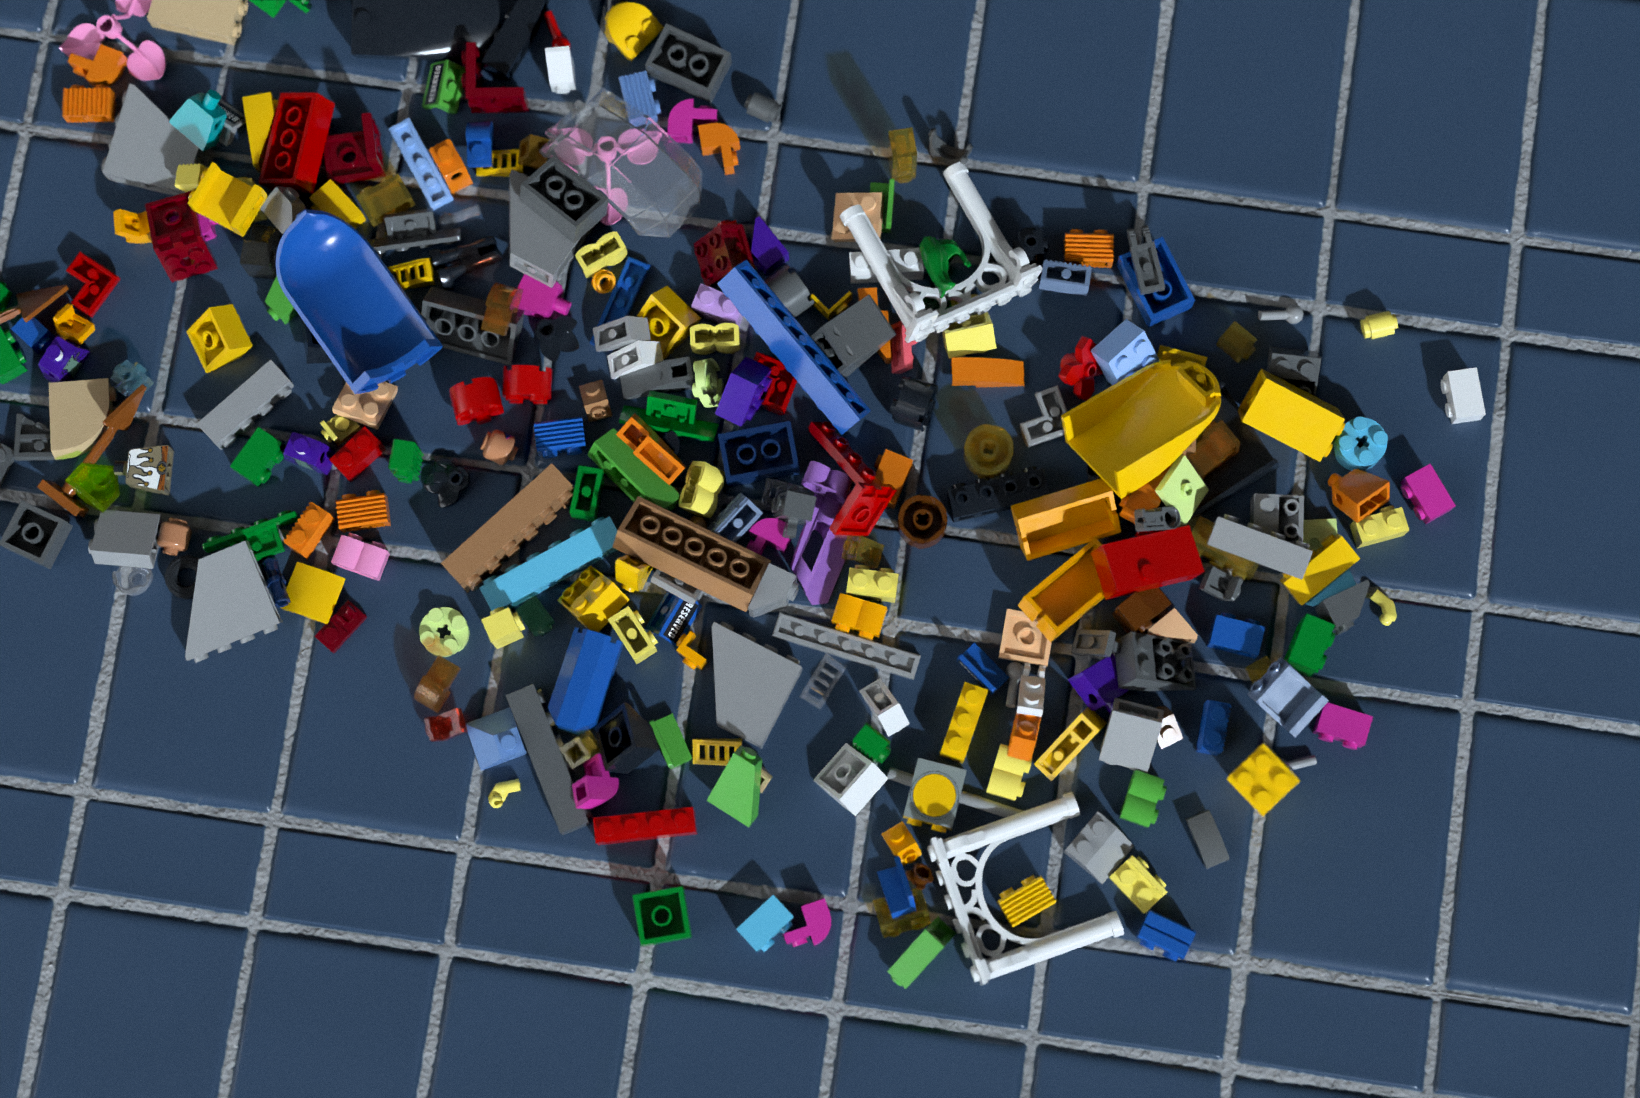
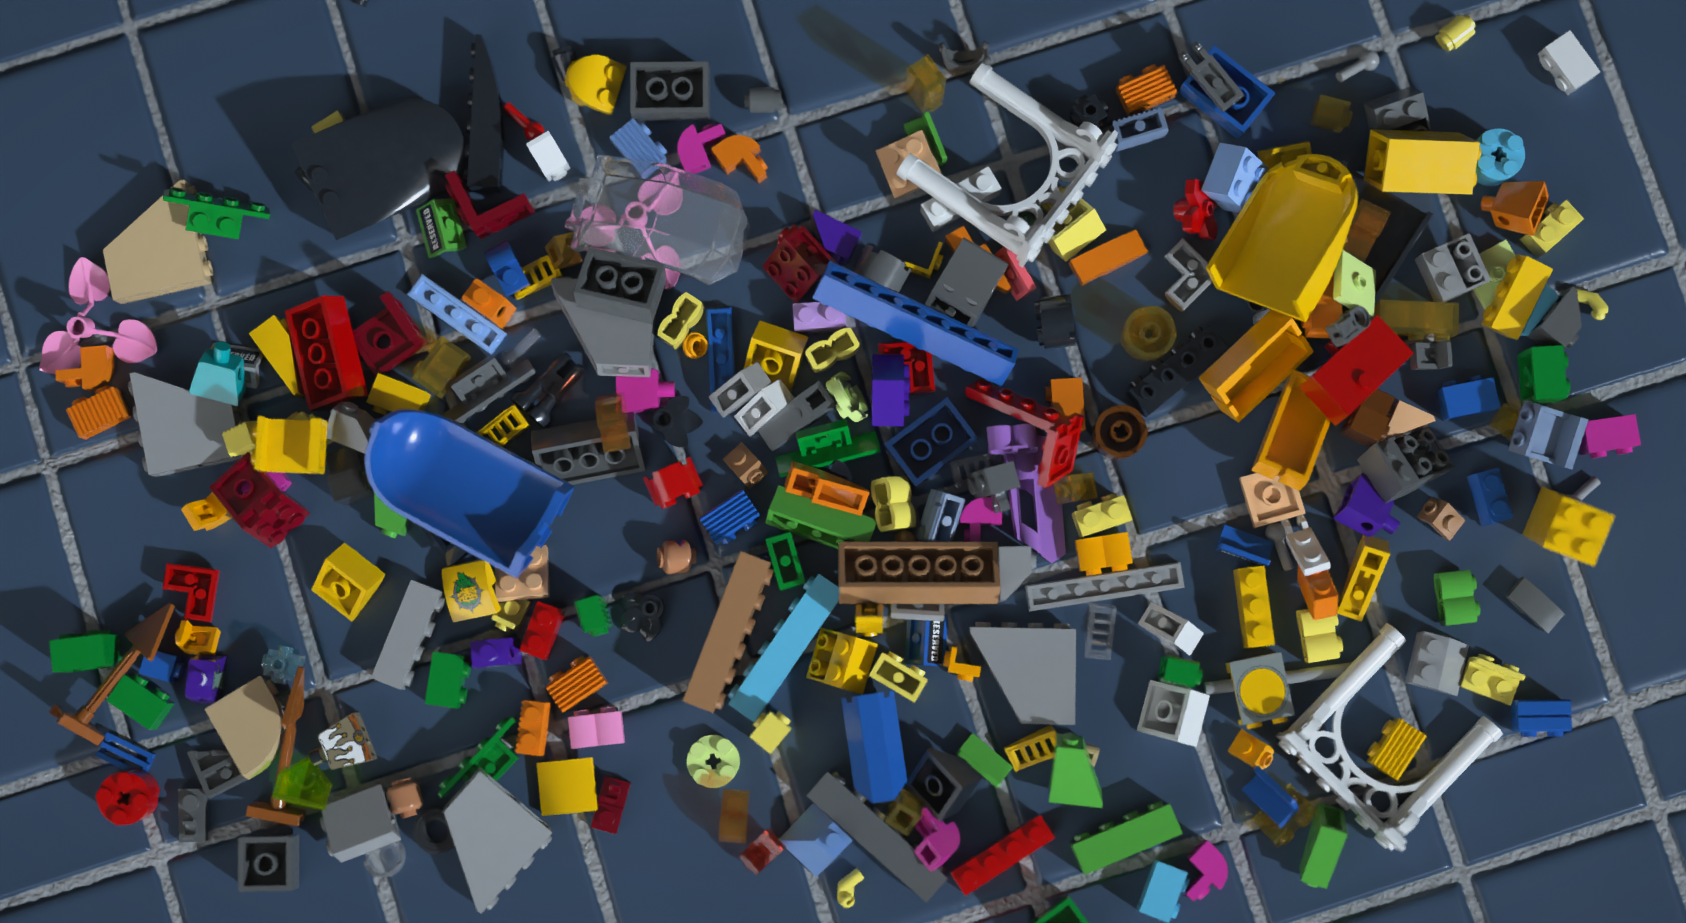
camera: 25 degrees left, 5 degrees up
(276, 582) = (527, 794): dark blue pin -> none
(314, 392) = (470, 590): none -> yellow slope
(476, 401) = (632, 523): red brick -> none
(535, 617) = (795, 704): clear green brick -> none
(757, 864) = (1126, 837): none -> bright green brick
(920, 875) = (1284, 772): reddish brown plate -> none
(936, 258) = (1008, 170): green hair -> none
(1095, 643) = (1341, 471): dark grey plate -> none
(1131, 735) = (1419, 542): light grey brick -> none
(1260, 547) = (1456, 305): light grey brick -> none
(1427, 494) = (1580, 175): dark pink brick -> none

